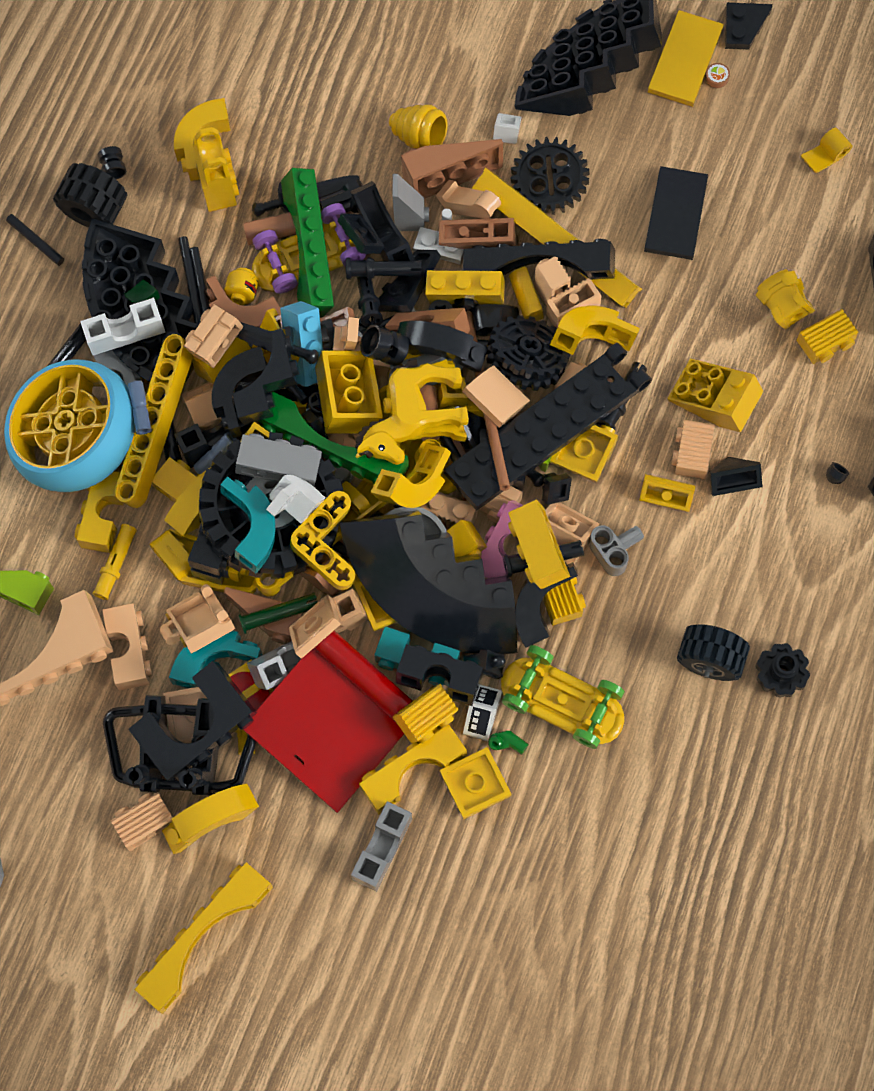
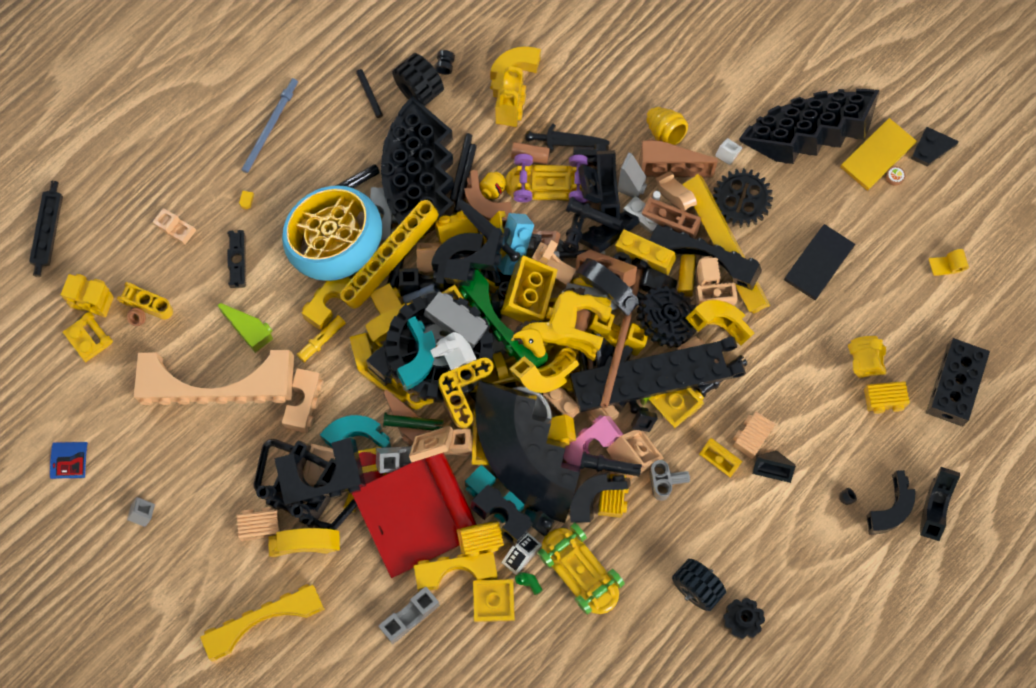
camera: 20 degrees right, 0 degrees up
(107, 334) = (410, 183): white arch -> none
(139, 403) = (383, 238): sand blue piece -> none
(142, 292) = (421, 164): dark green slope -> none
(198, 621) = (357, 404): light nougat piece -> none
(213, 335) = (453, 213): light nougat brick -> none
(302, 201) = (545, 198): green arch -> none
(384, 345) = (567, 269): black wheel -> none
(495, 396) = (629, 338): light nougat slope -> none
(537, 545) = (609, 456): yellow brick -> none
(717, 394) = (788, 403): yellow slope -> none

